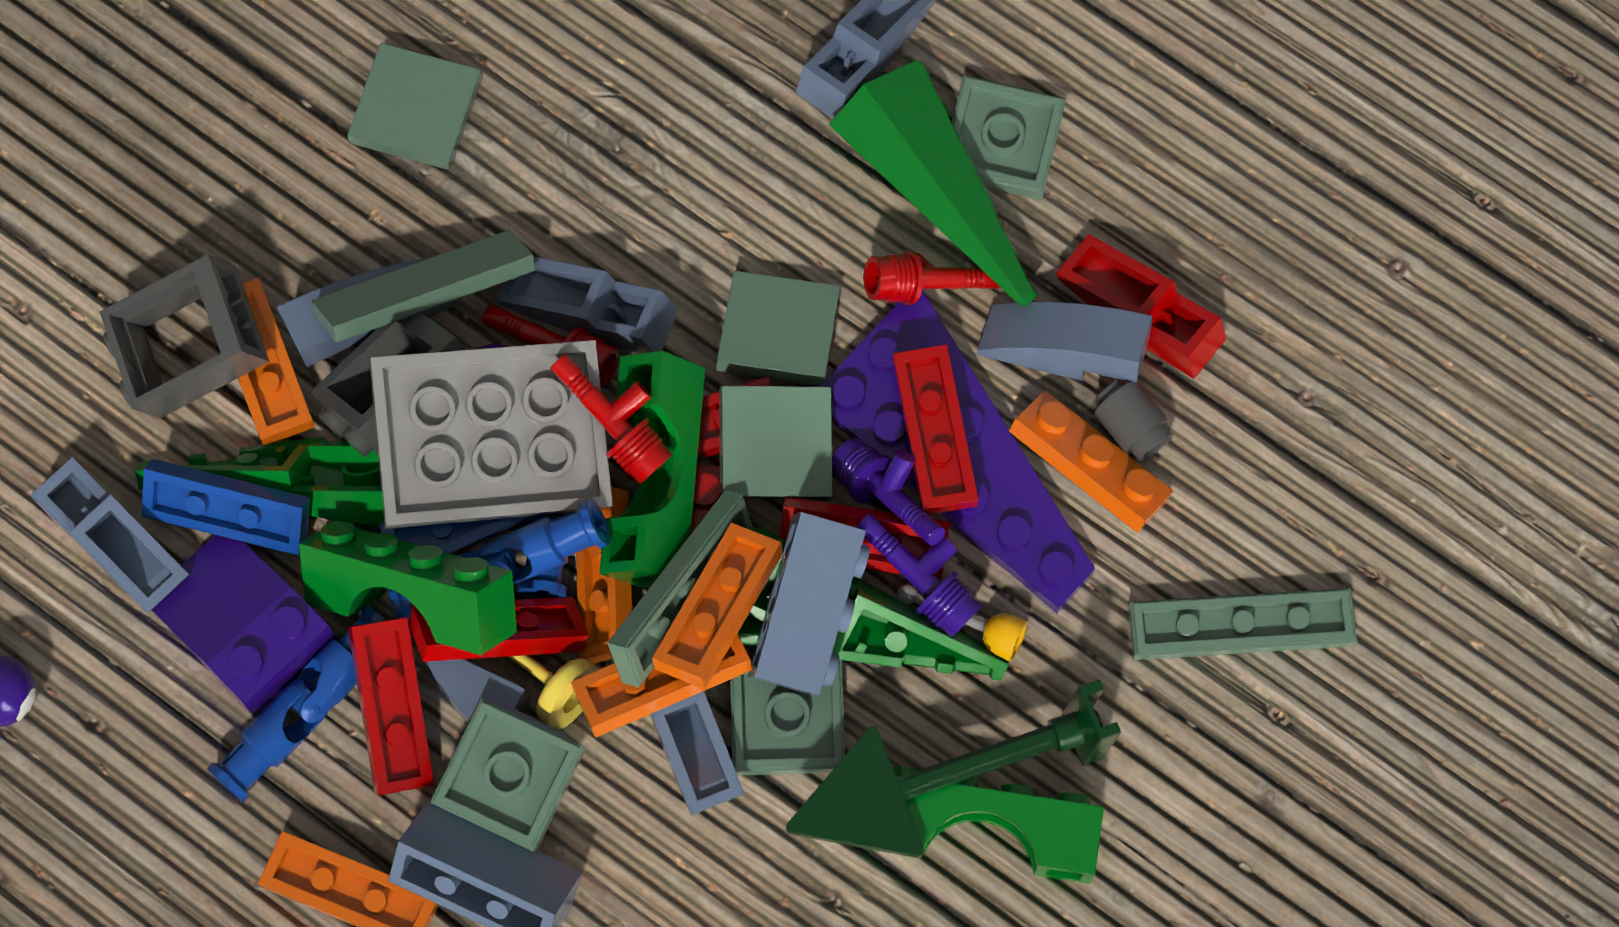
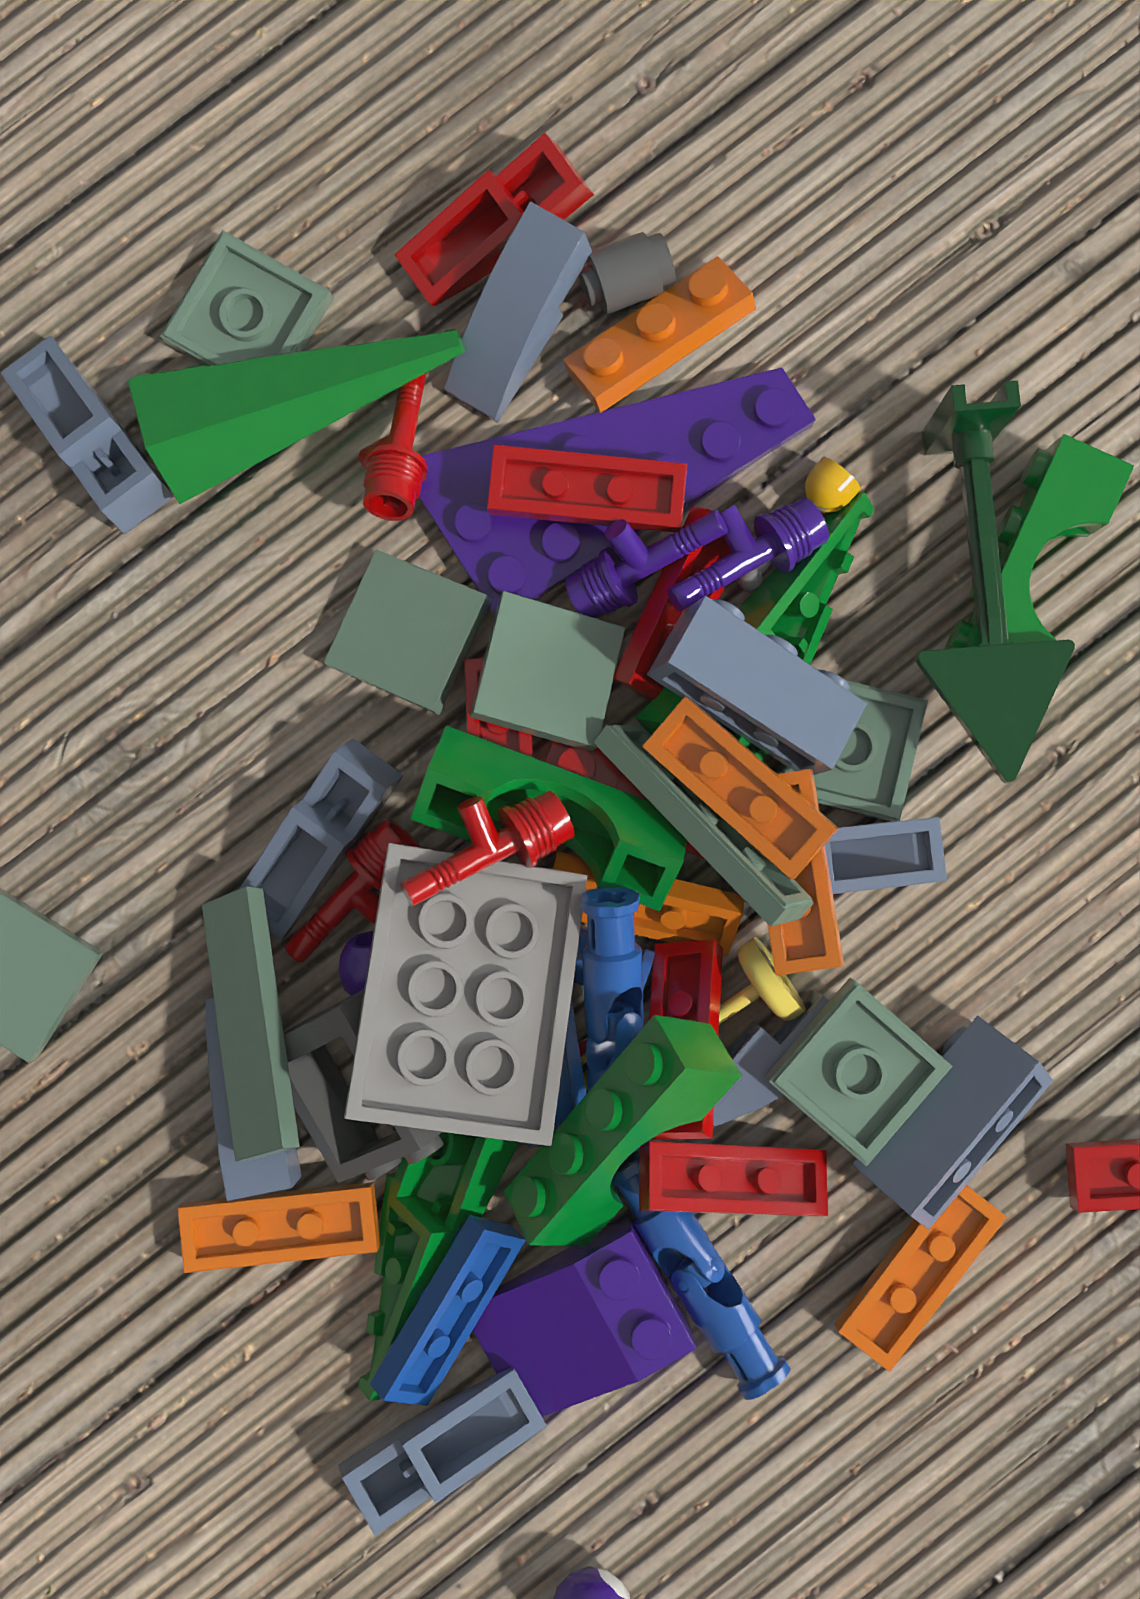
camera: 75 degrees left, 15 degrees up
(230, 320) = (226, 1262): dark grey window -> none
(1242, 624) = (882, 232): sand green tile -> none

